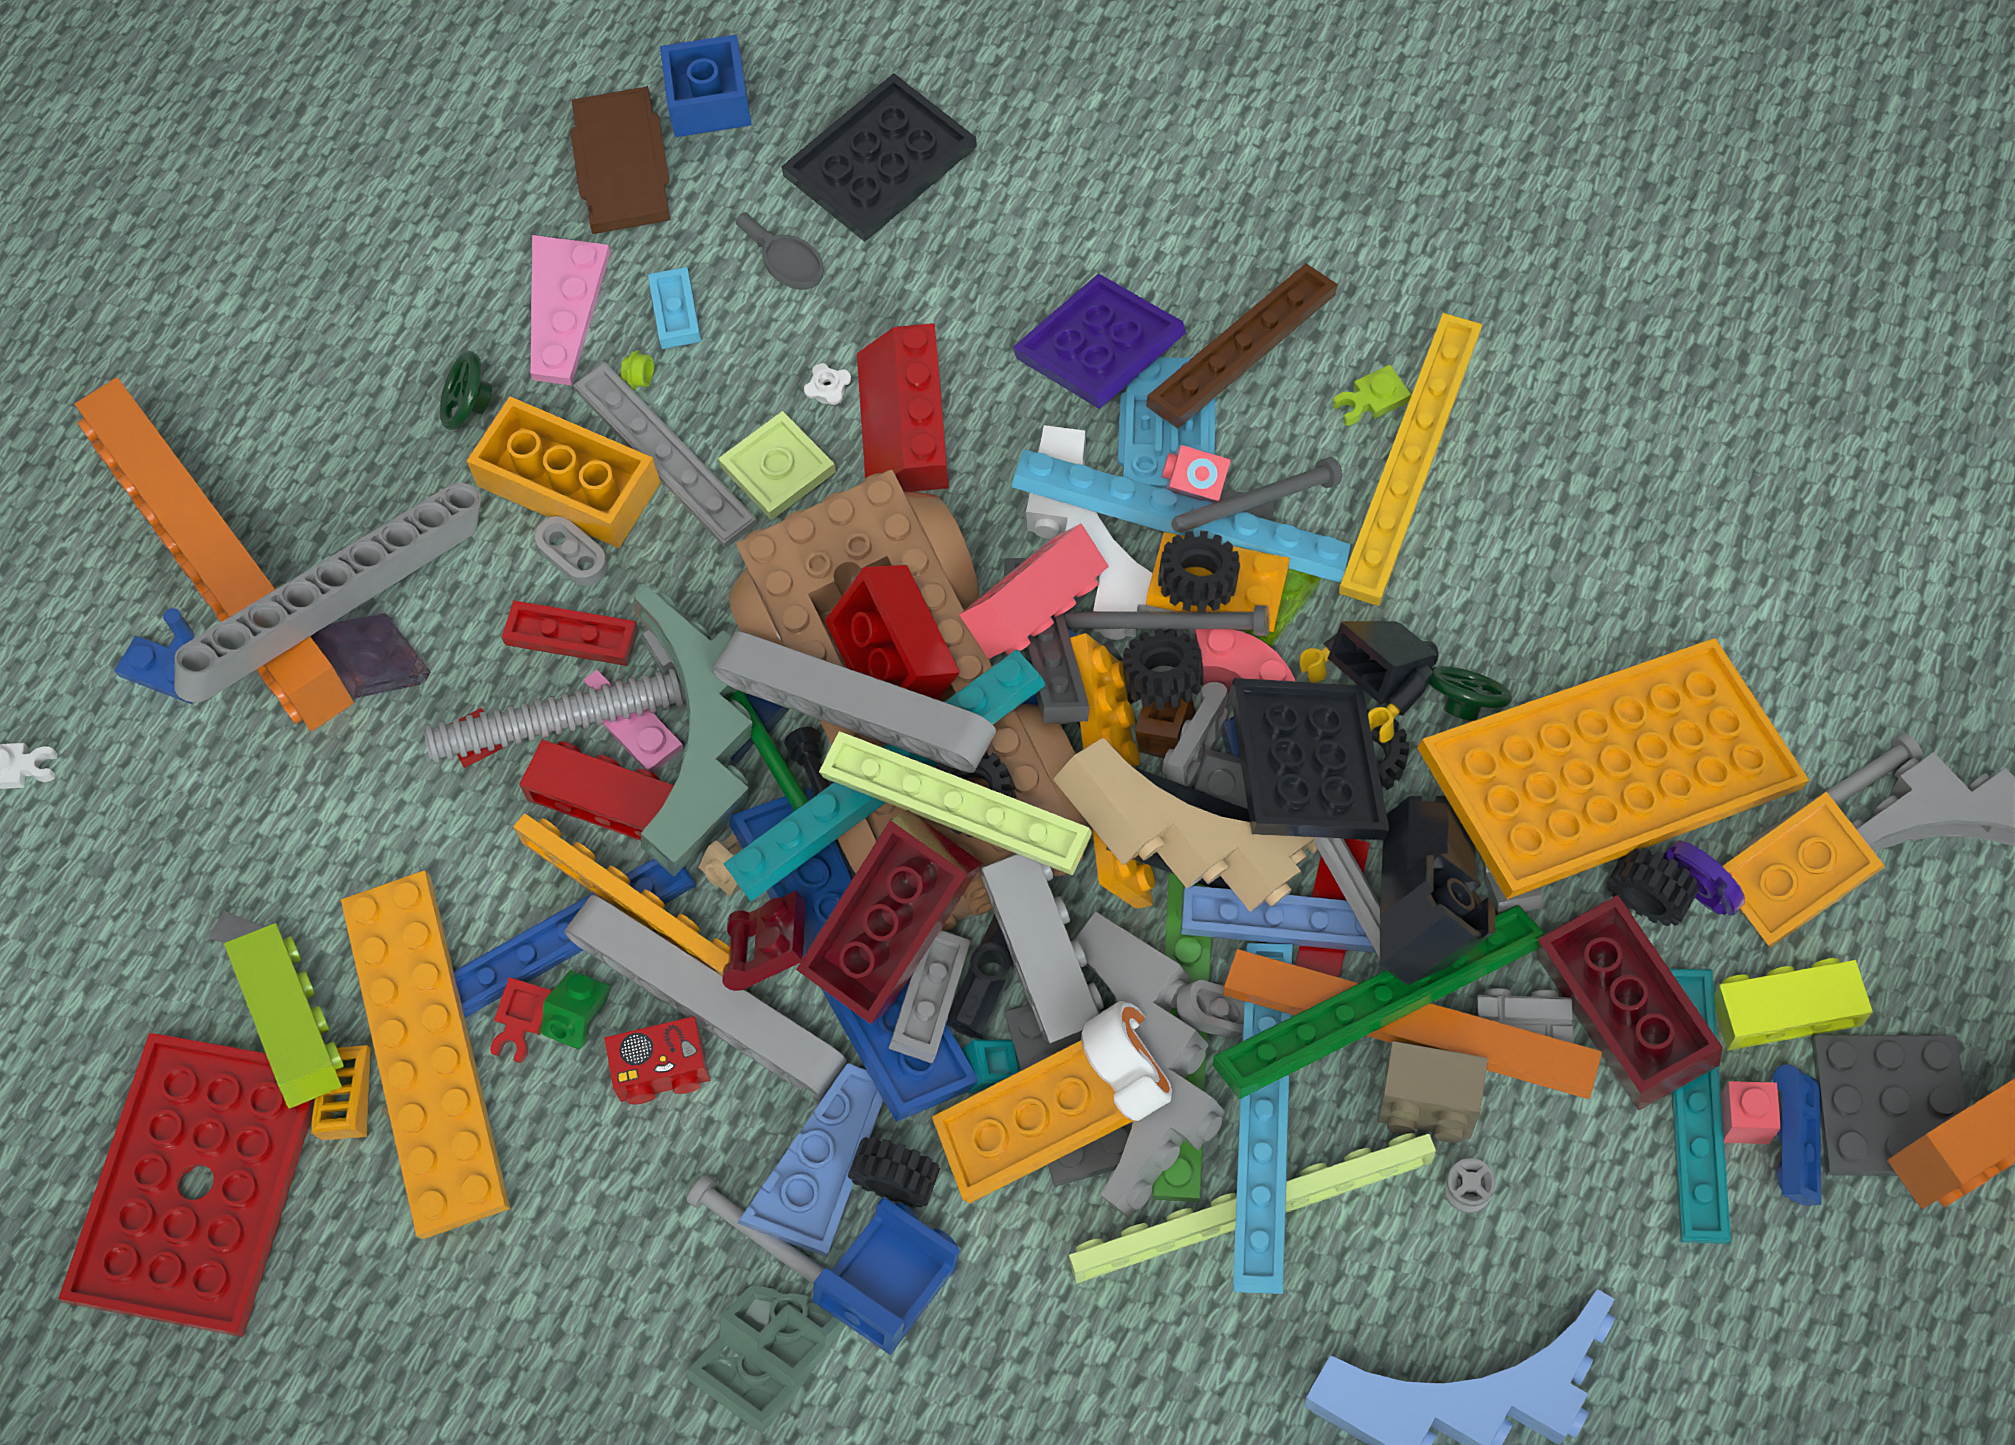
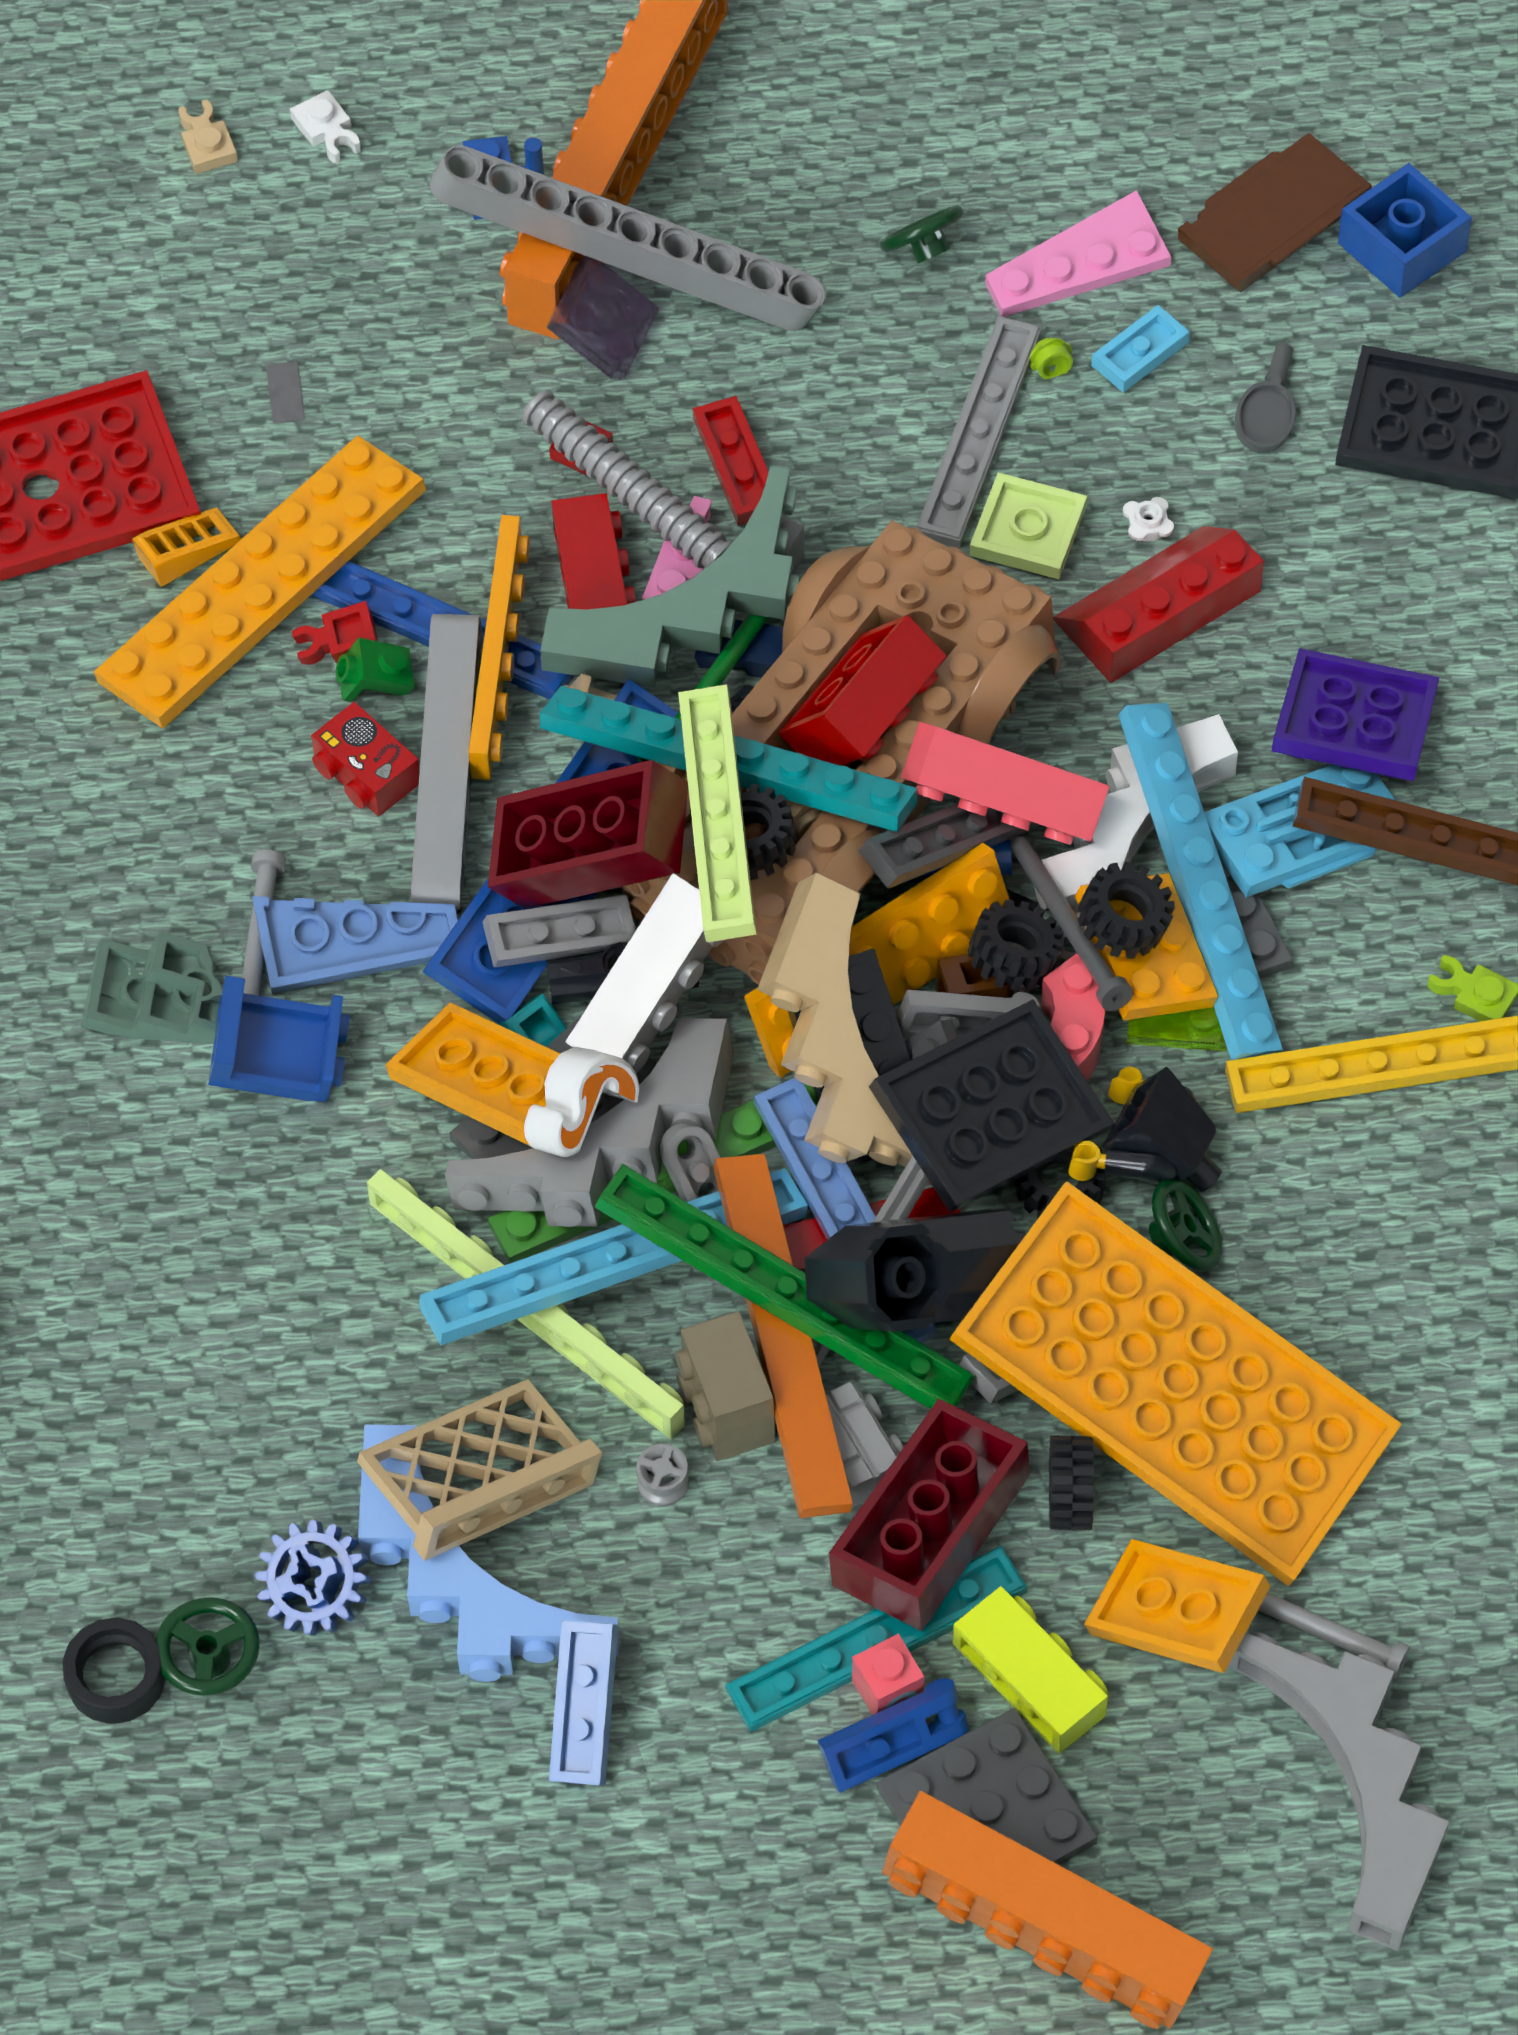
camera: 55 degrees right, 5 degrees down
(283, 1016) = (221, 453): lime brick -> none
(564, 471) = (893, 358): light orange brick -> none
(573, 552) = (821, 416): light grey plate -> none
(778, 941) = (514, 763): dark red plate -> none
(855, 701) = (772, 686): light grey beam -> none
(894, 1171) = (372, 993): black tyre -> none
(1195, 473) = (1242, 861): coral brick -> none
(1326, 472) = (1349, 989): dark grey bar -> none
(1439, 1328) = (508, 1493): none -> tan fence
(1658, 1357) = (583, 1702): none -> plate
(1716, 886) = (1110, 1522): dark purple tile -> none

